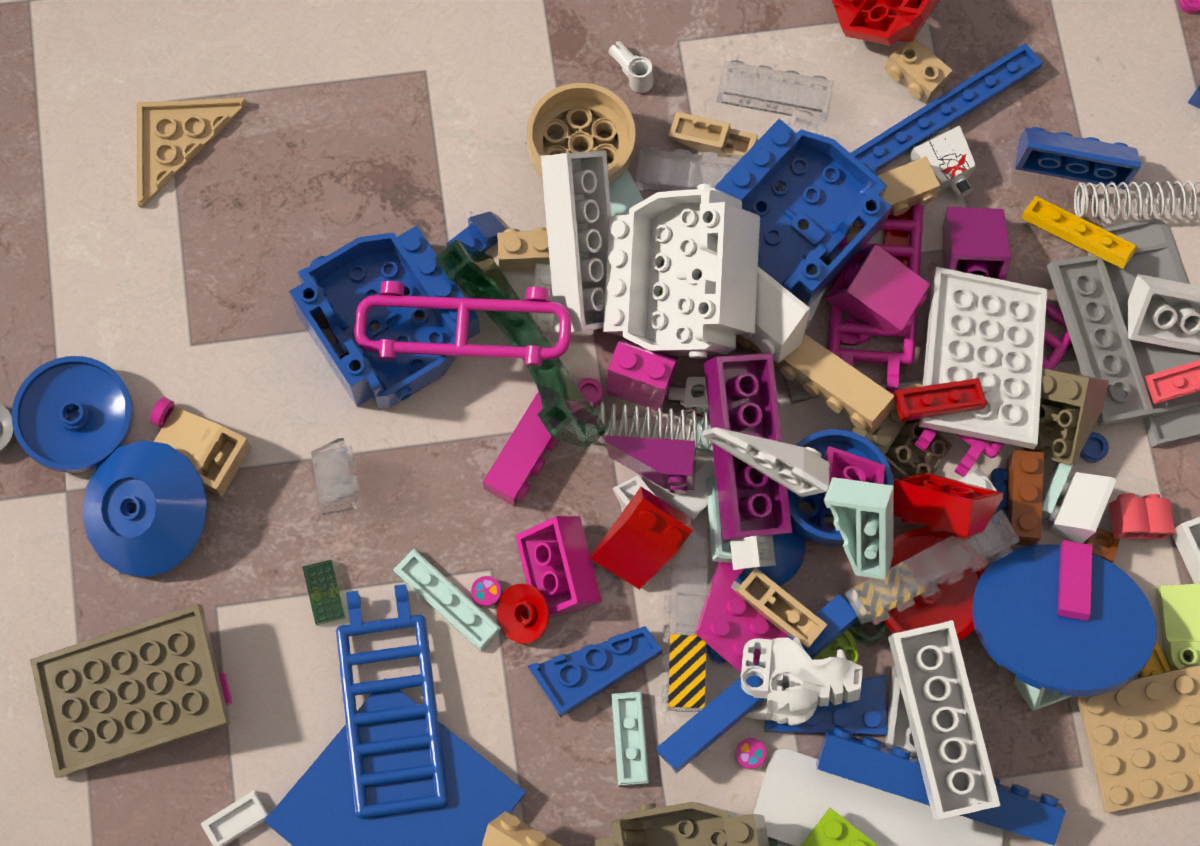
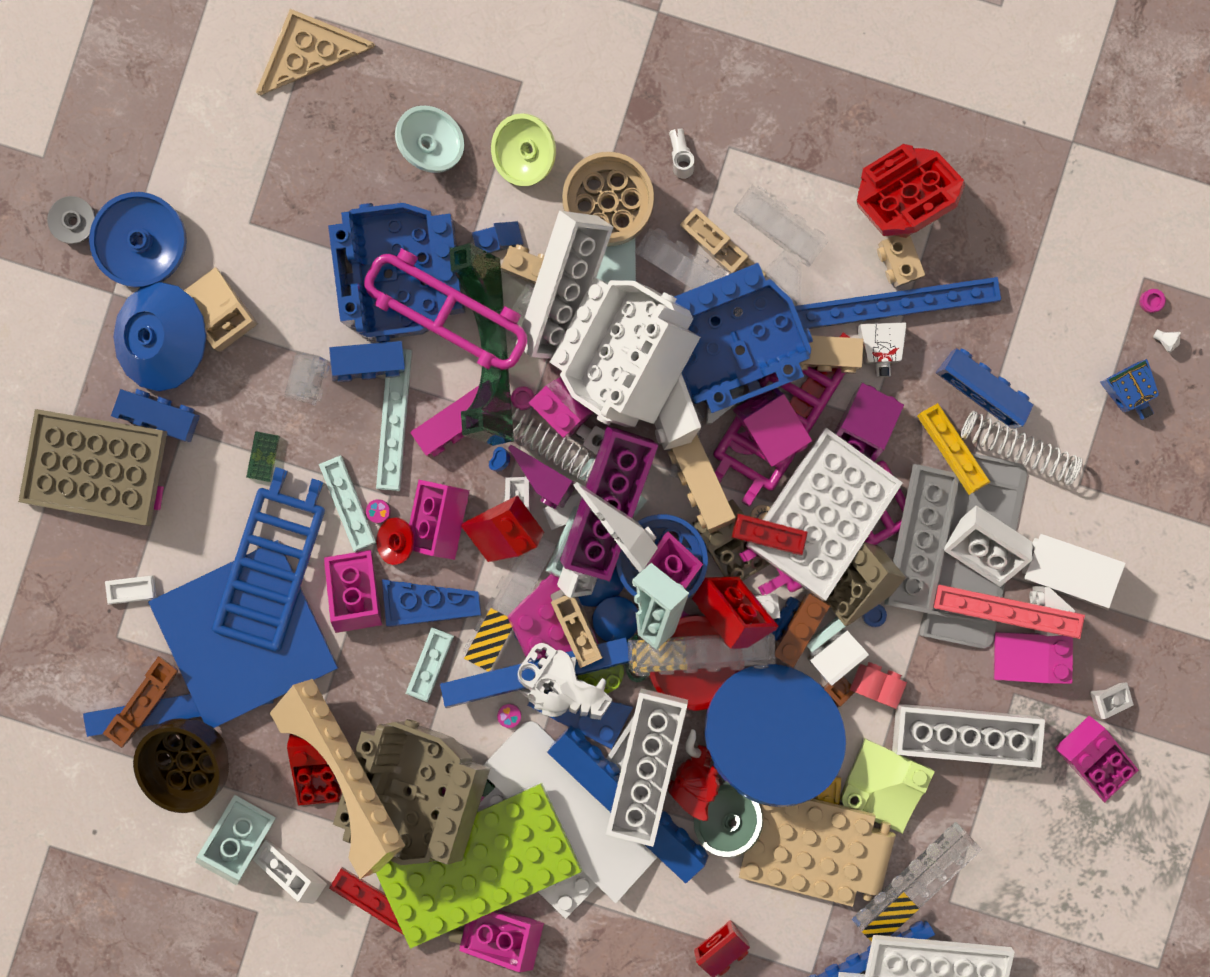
camera: 40 degrees right, 15 degrees up
(160, 596) = (156, 414): none -> blue wedge
(161, 411) = (204, 267): dark pink tile -> none
(355, 164) = (434, 130): none -> light aqua dish
(394, 427) = (366, 361): none -> blue wedge
(446, 134) = (512, 154): none -> yellowish green dish
(456, 482) = (394, 428): none -> light aqua tile
(501, 695) = (352, 591): none -> dark pink slope
(597, 470) = (499, 460): none -> blue piece
(815, 582) = (615, 618): none -> blue dish
(1004, 720) = (695, 781): none -> red helmet
(1046, 738) = (718, 835): none -> sand green dish
(1075, 580) = (800, 710): dark pink tile -> none

